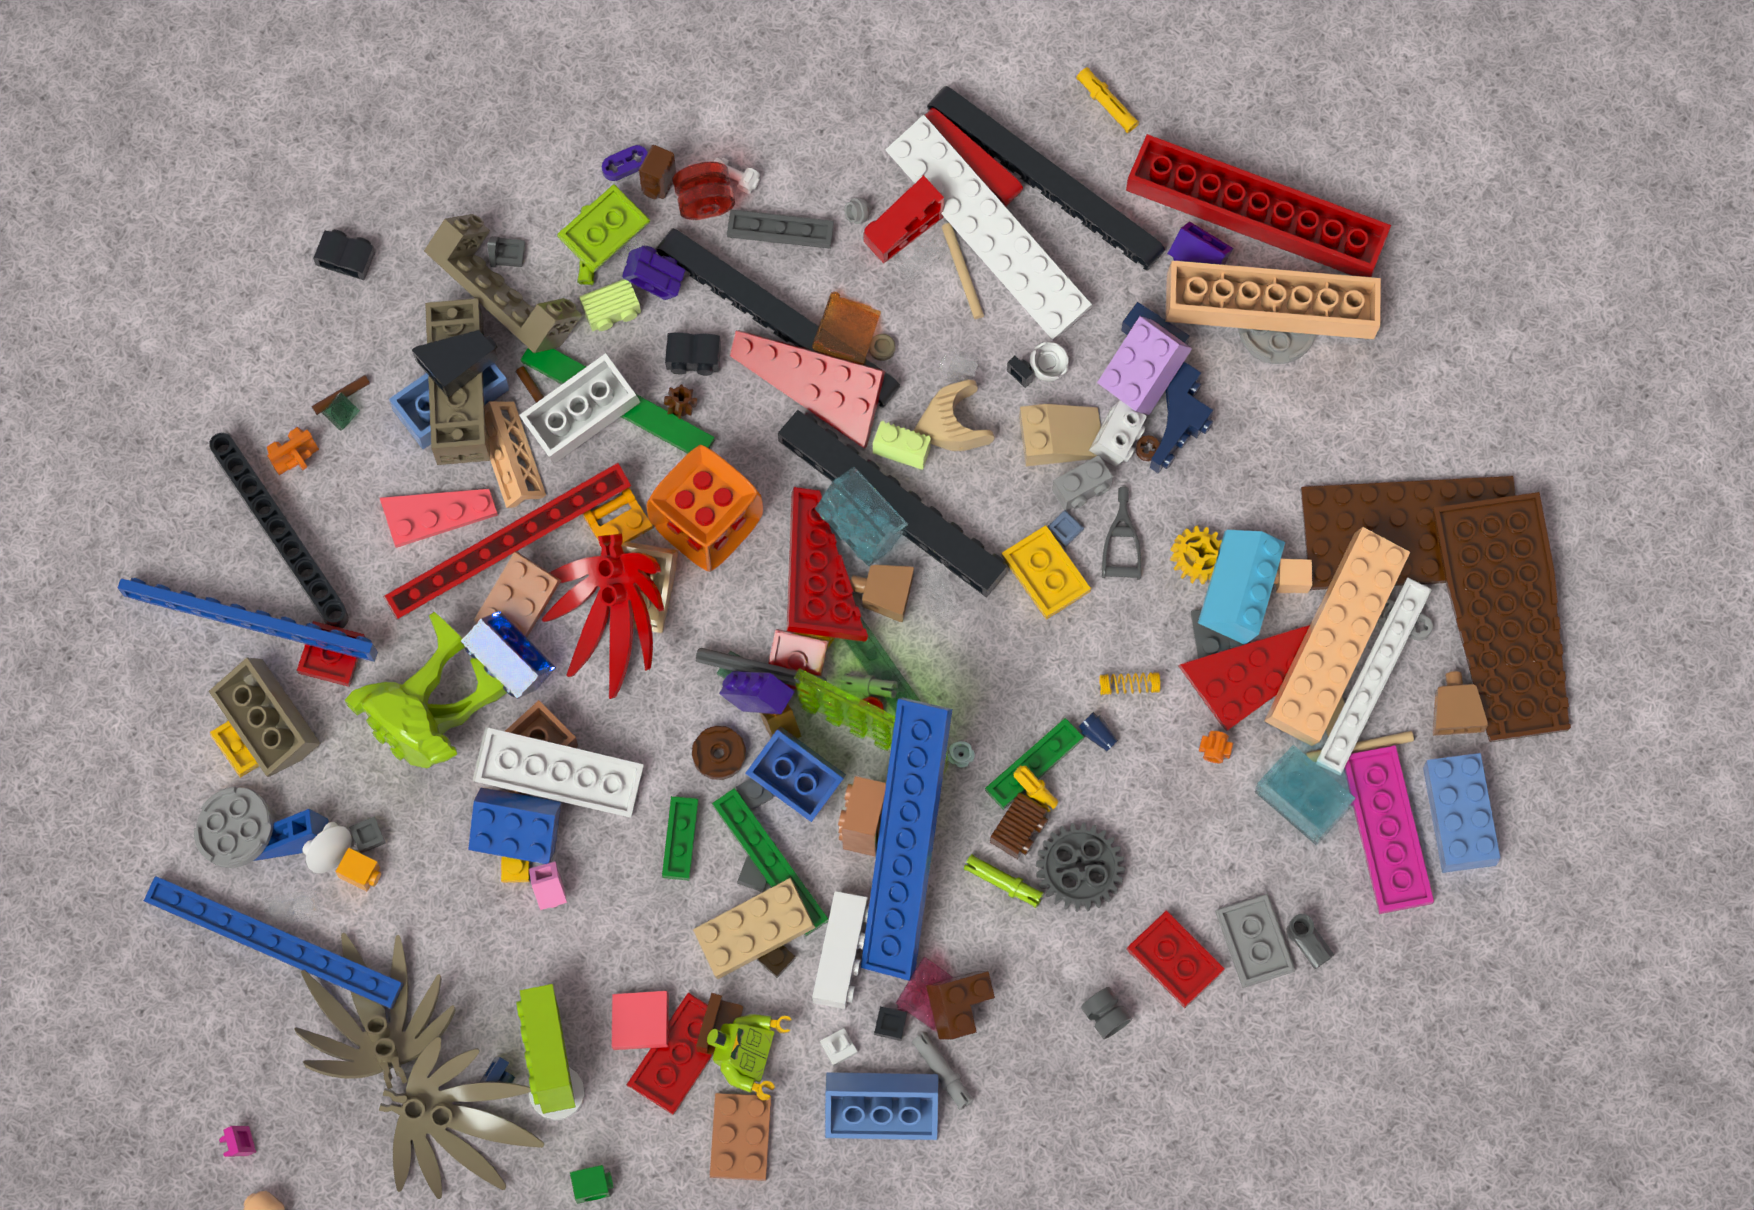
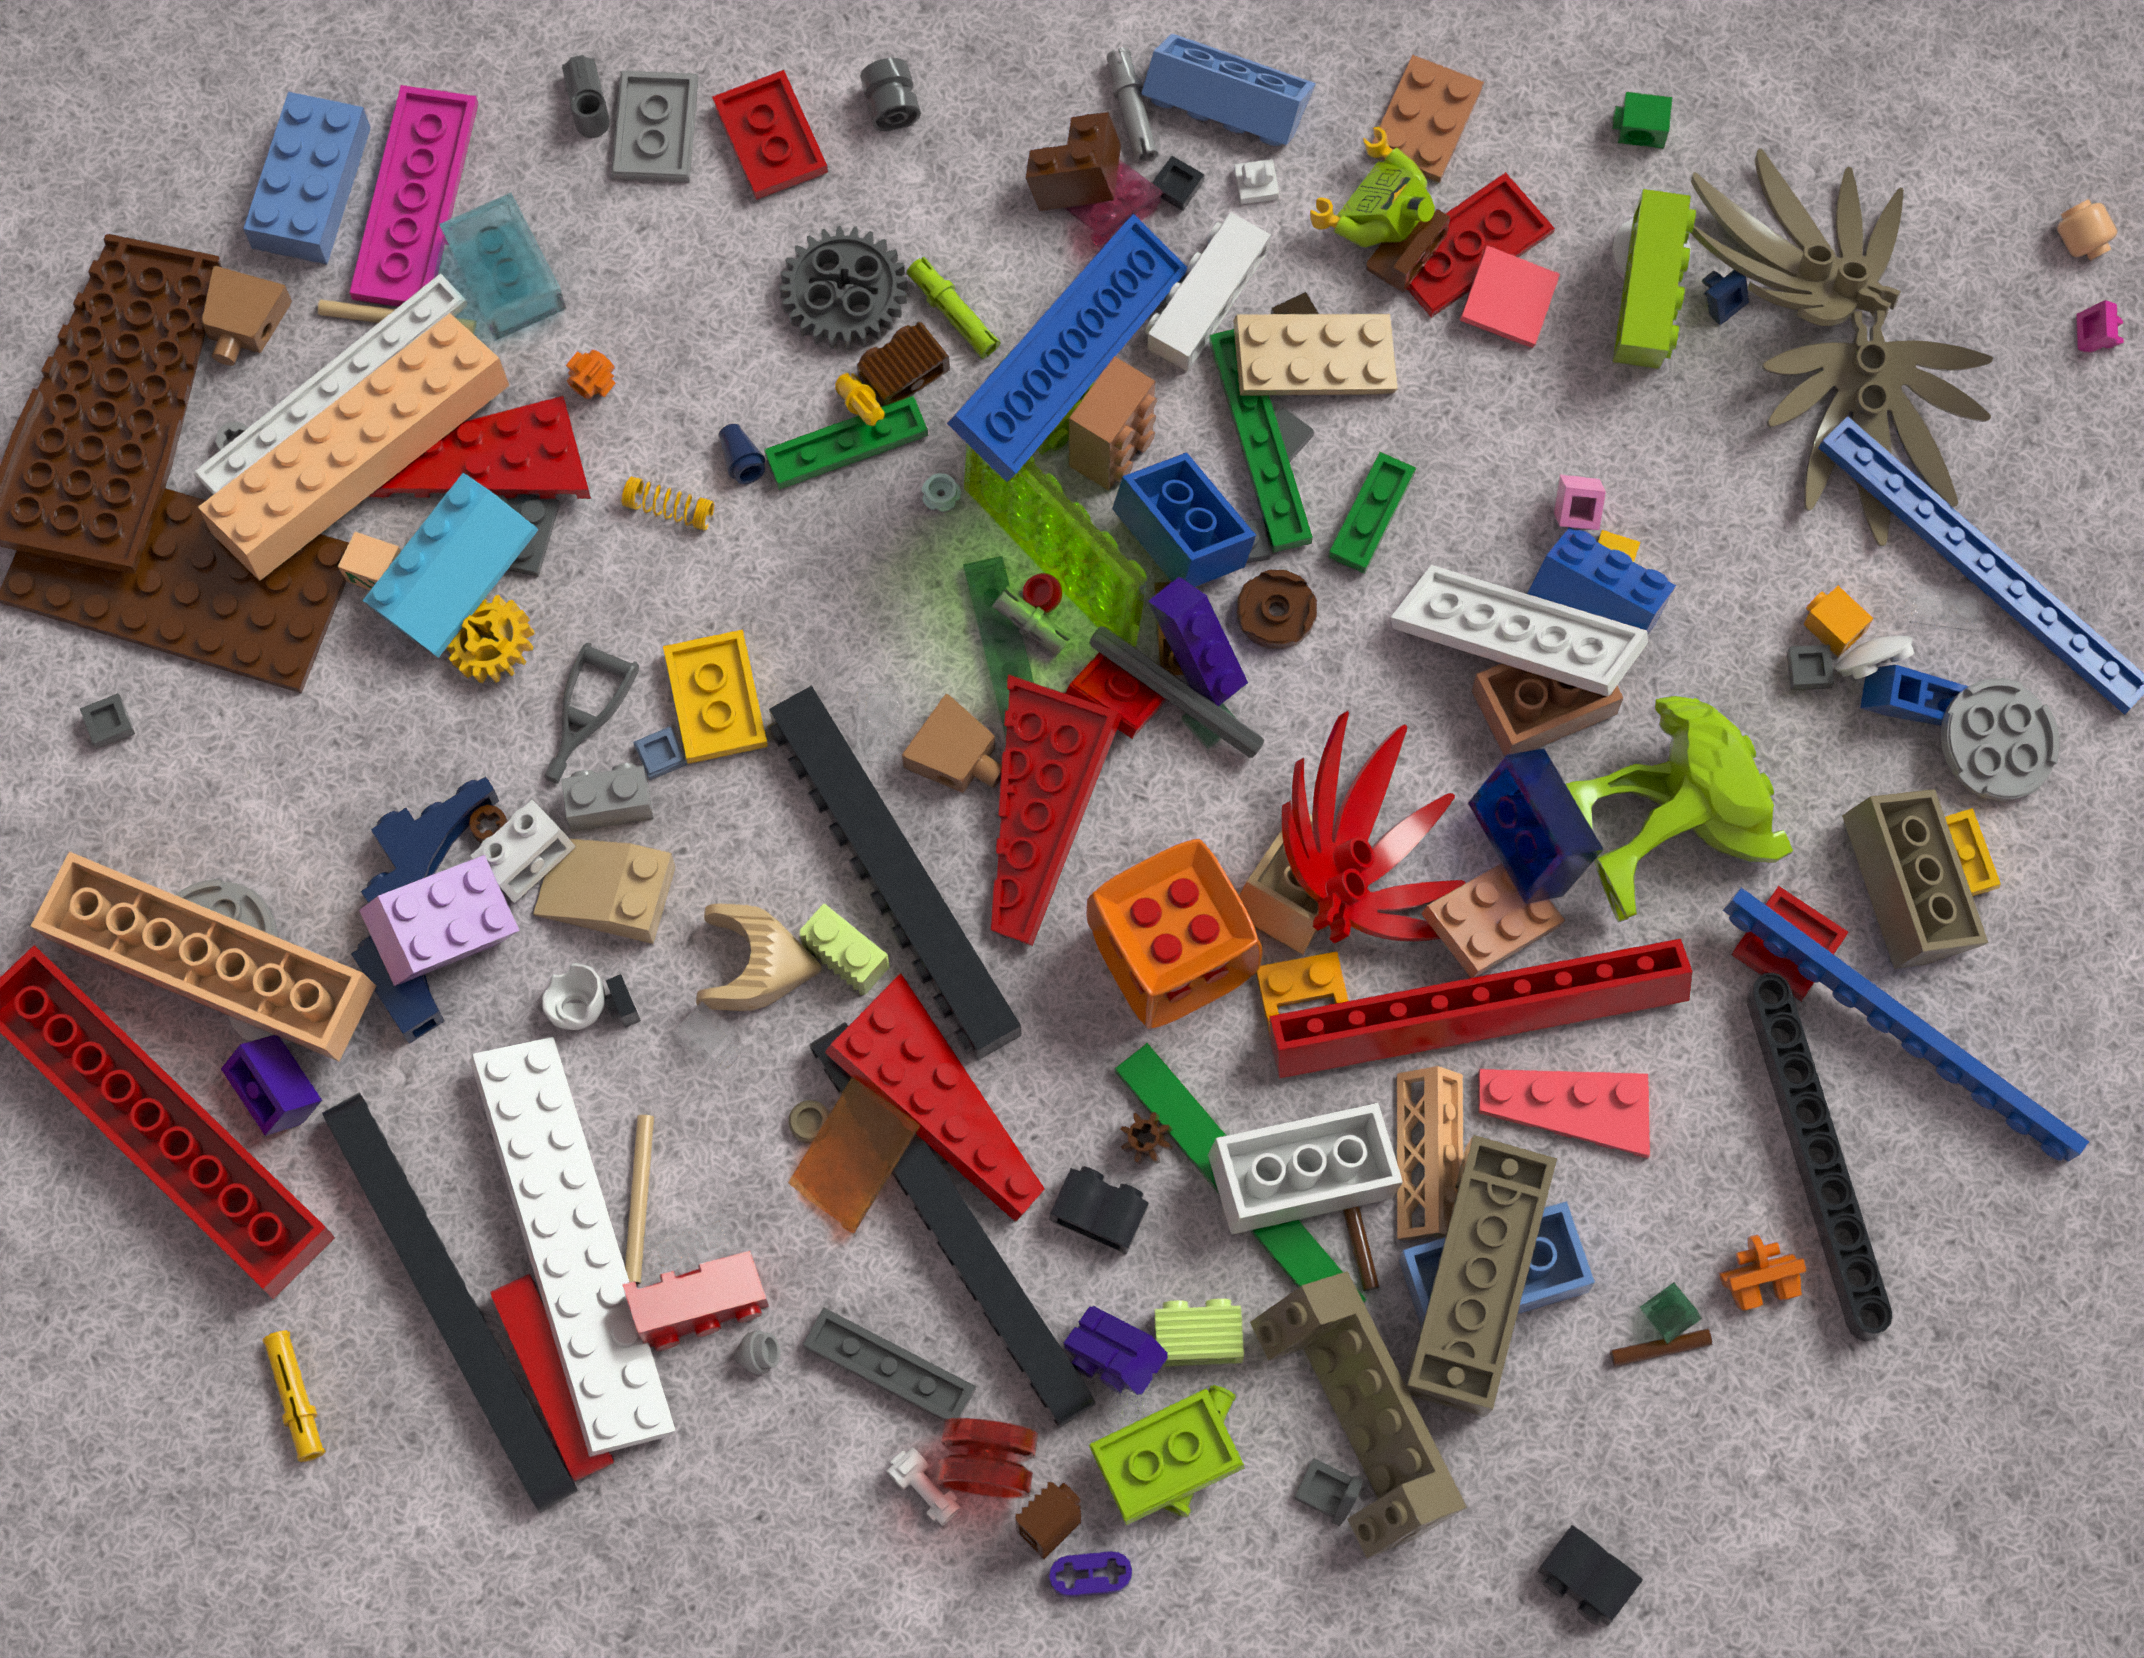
camera: 160 degrees left, 0 degrees up
(456, 359) = (1477, 1278): black slope -> none
(861, 516) = (949, 847): clear light blue brick -> none
(1406, 426) = (107, 721): none -> dark grey plate

